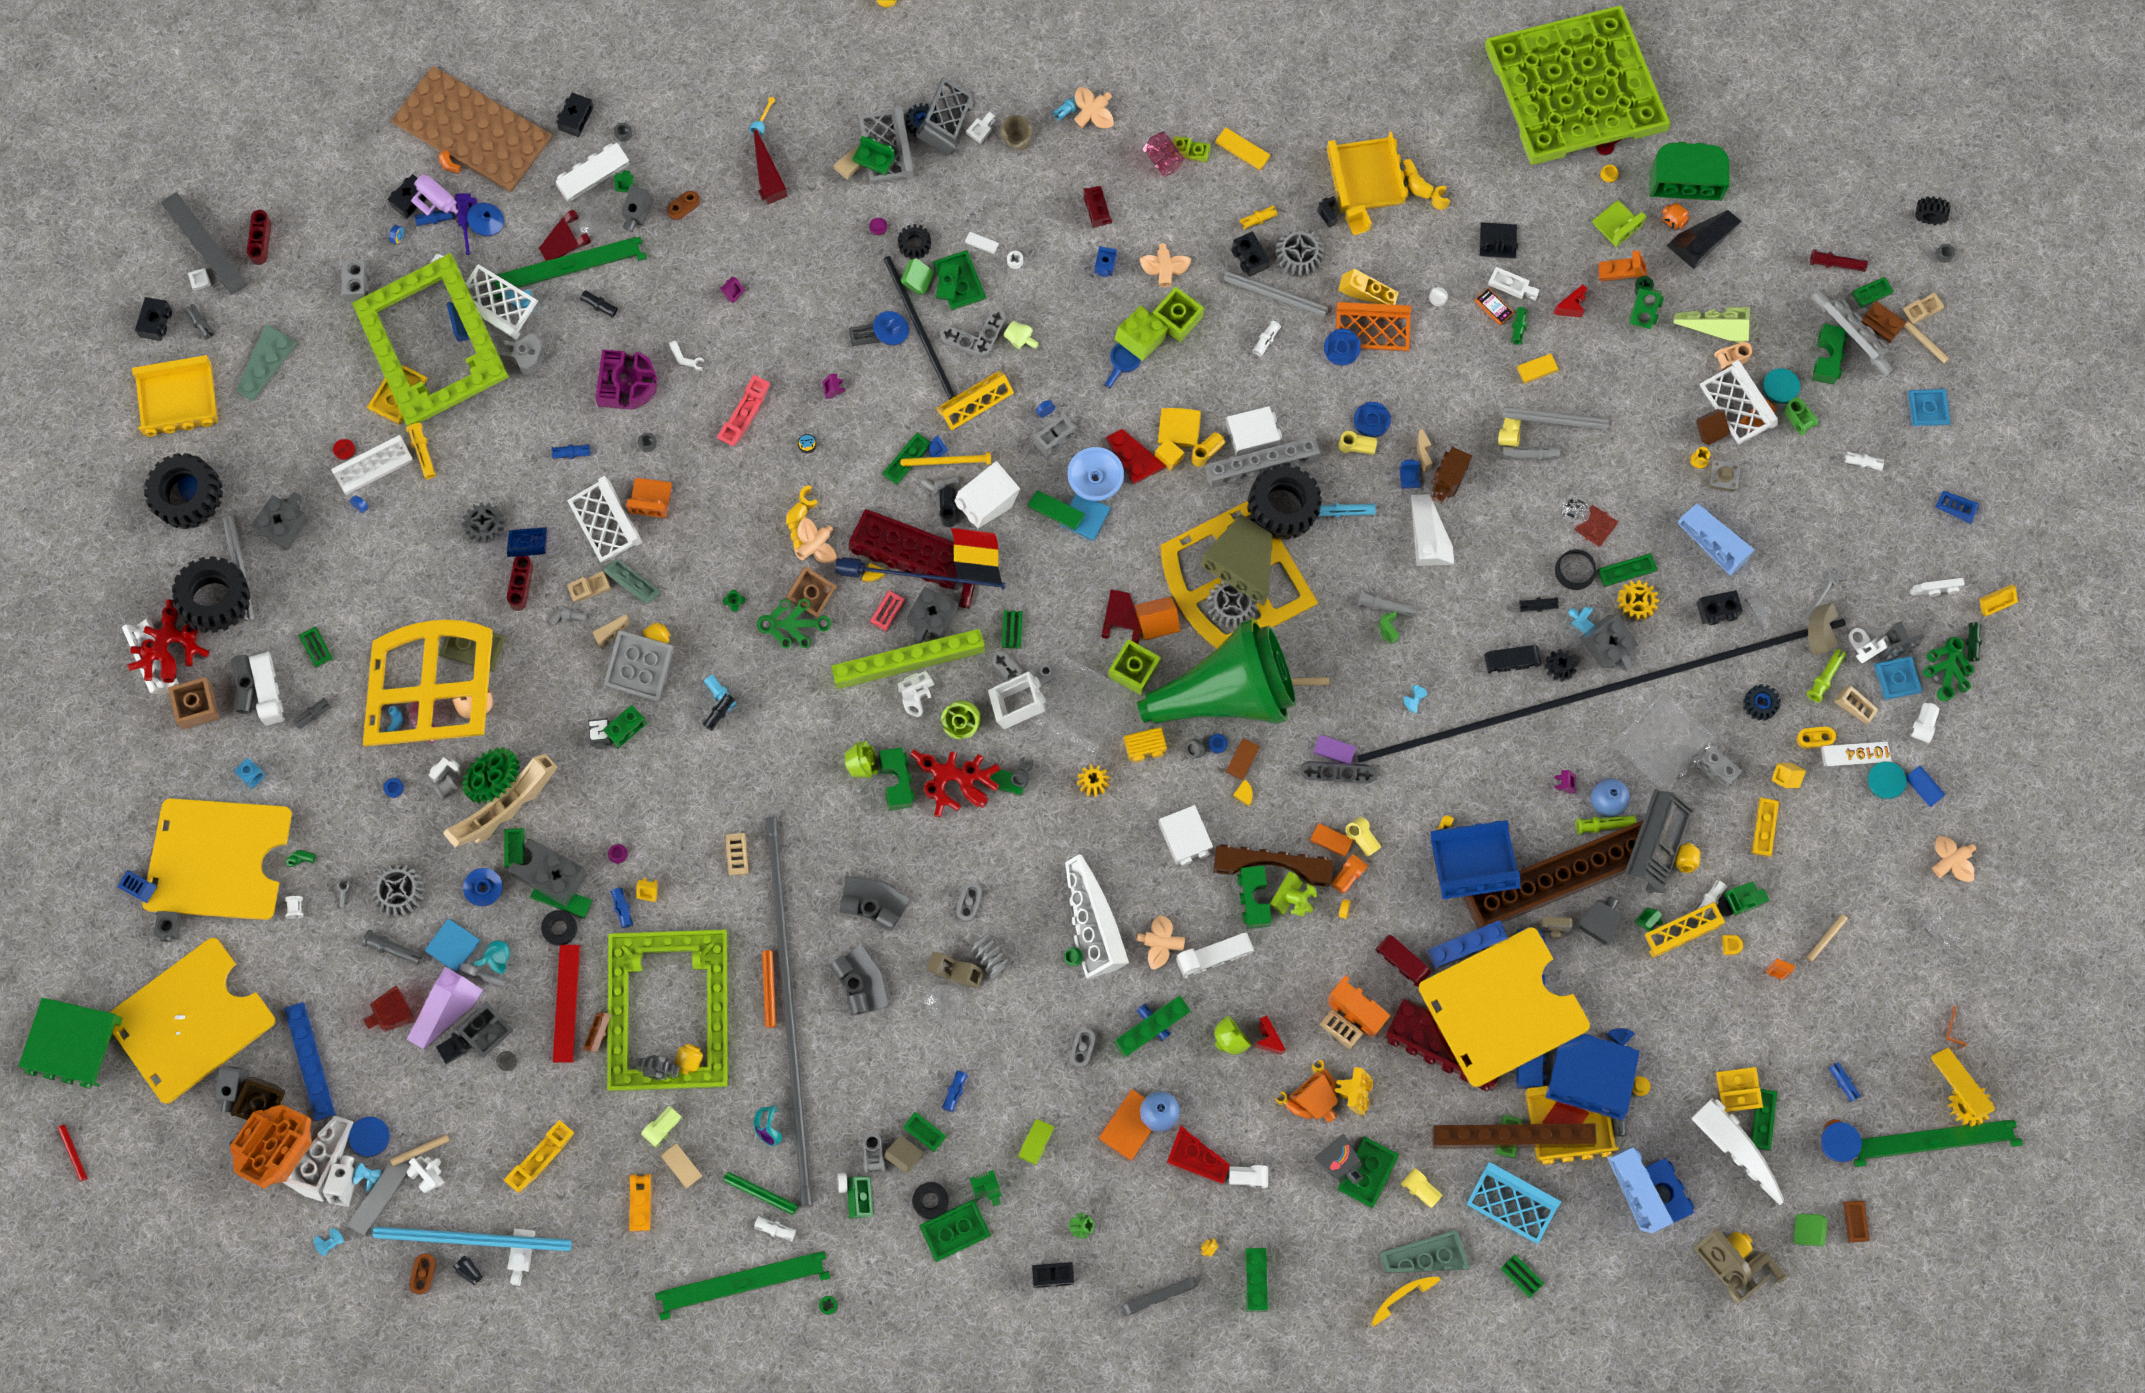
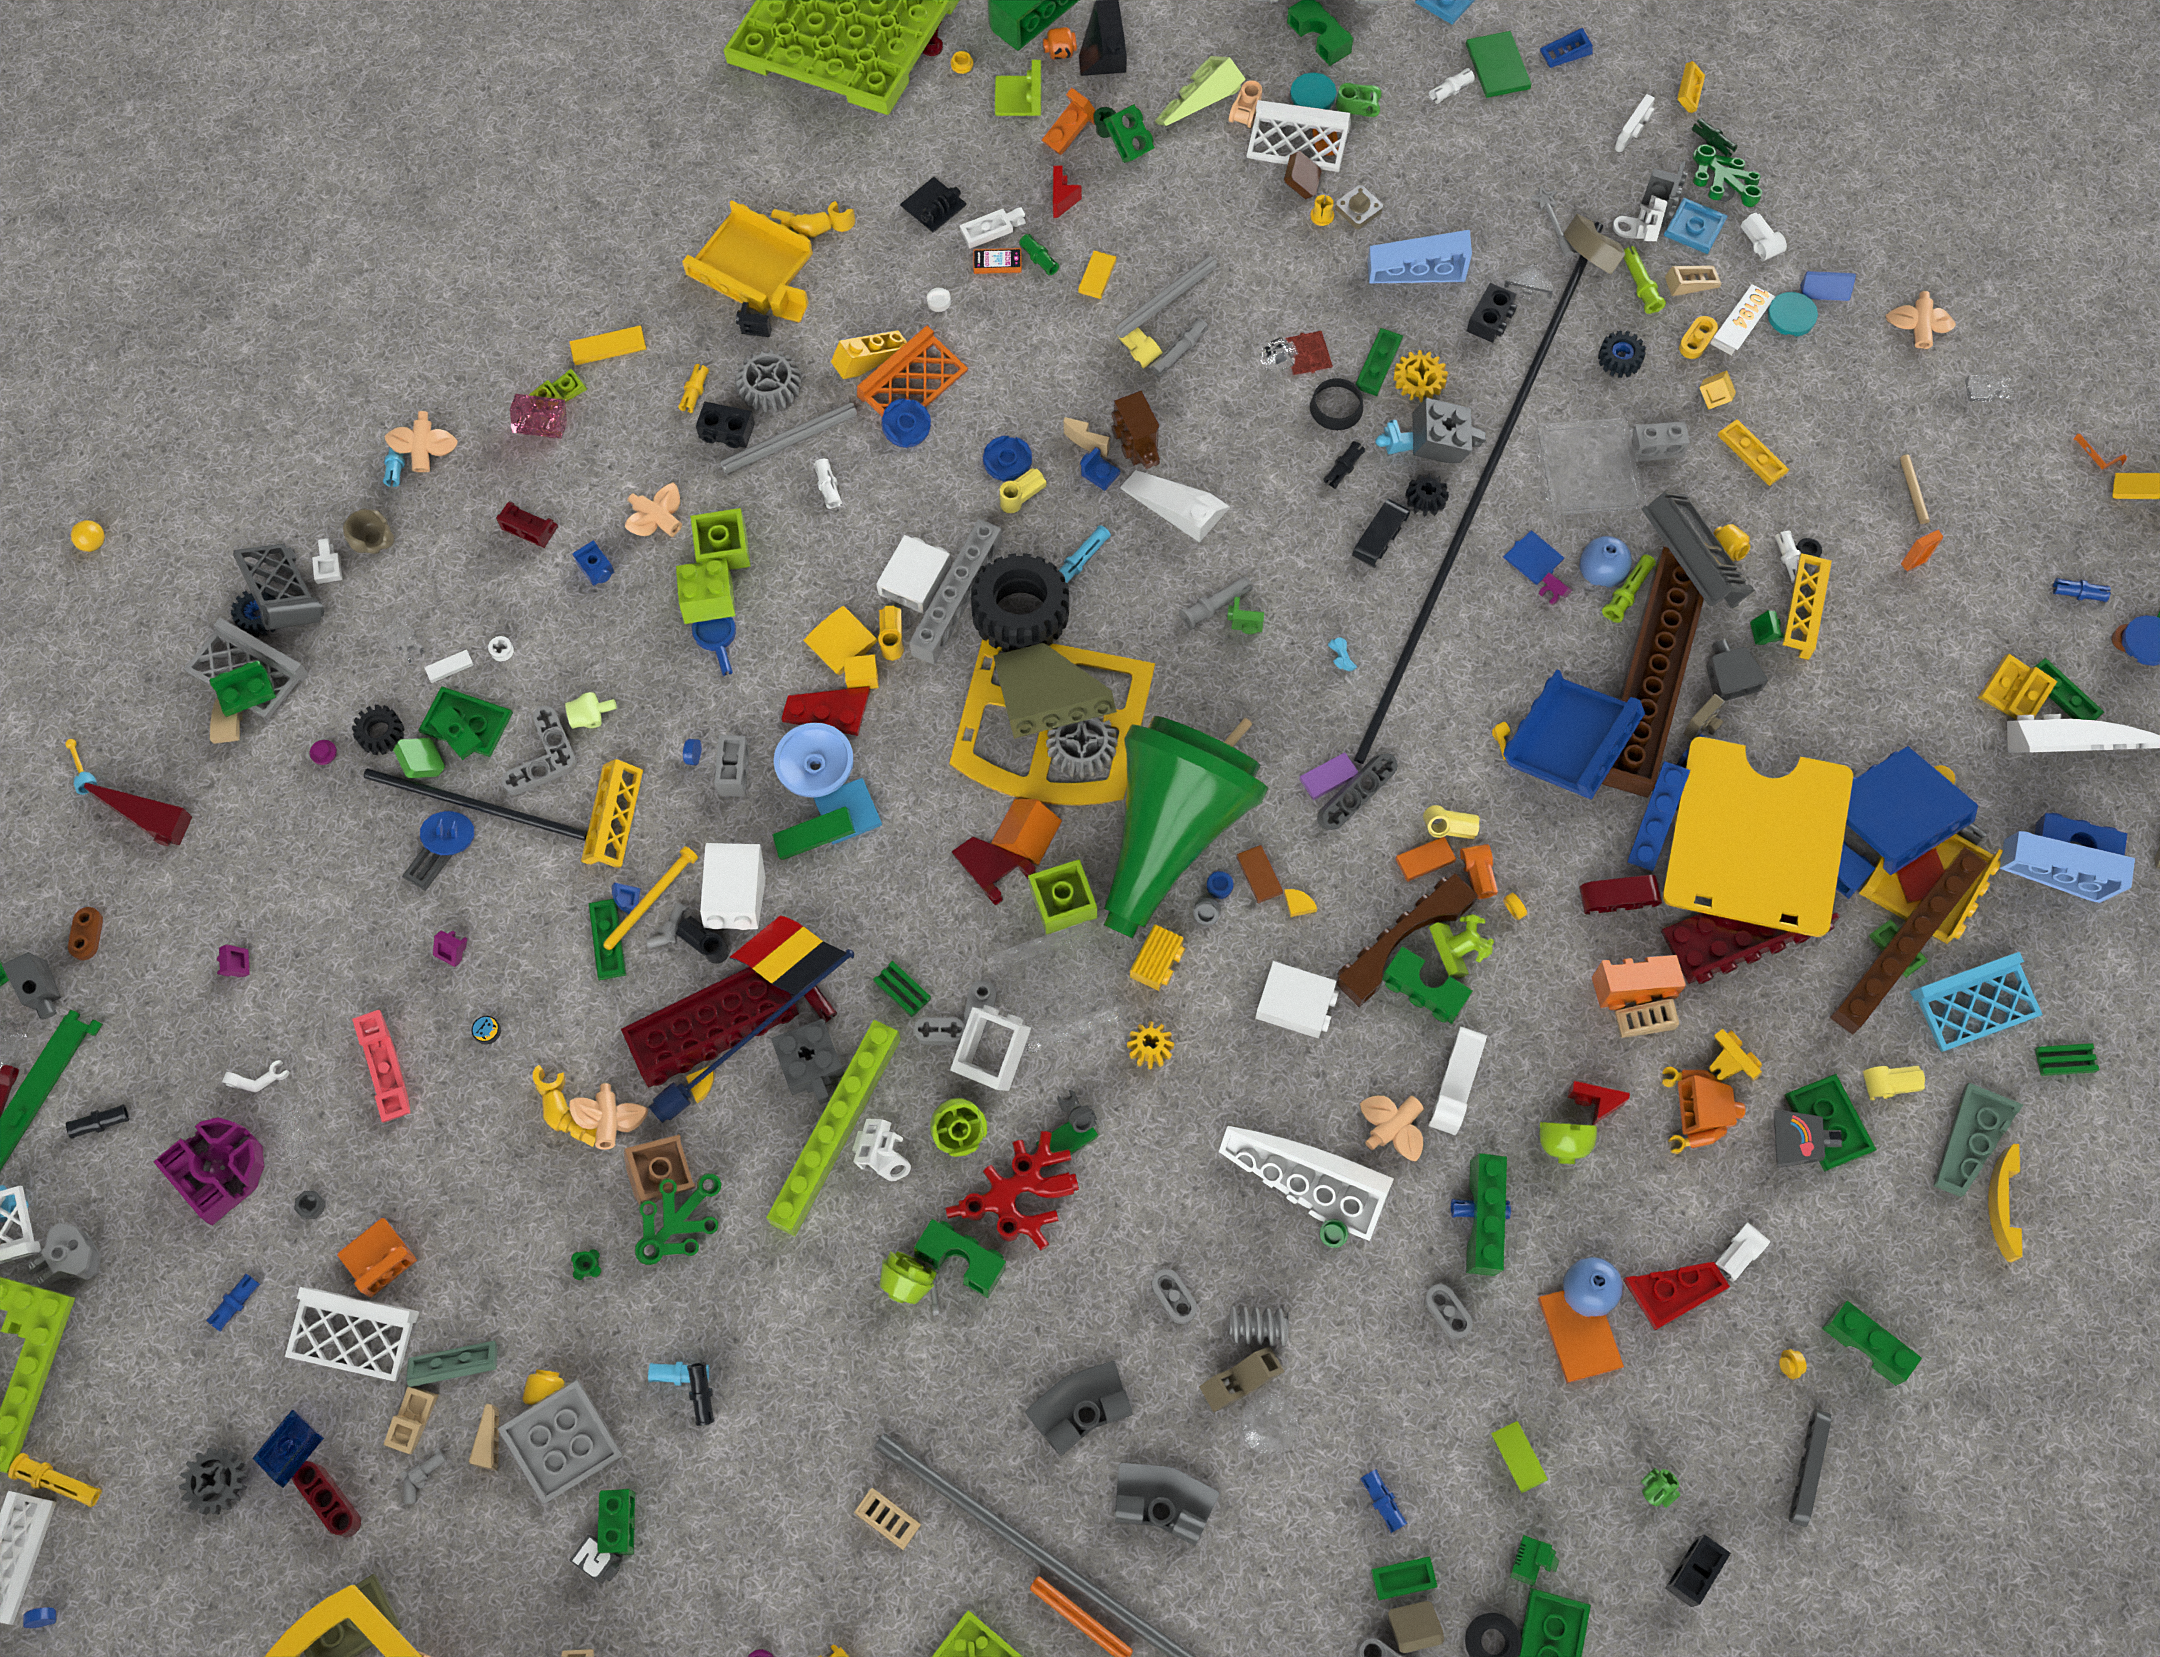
camera: 45 degrees left, 5 degrees down
(880, 624) = (764, 1126): coral tile -> none
(1577, 755) = (1533, 557): none -> blue piece
(1620, 1035) = (1870, 753): blue tile -> none
(1731, 944) = (1853, 576): yellow tile -> none
(1746, 898) = (1819, 523): green piece -> none
(1907, 475) = (1498, 64): none -> green tile

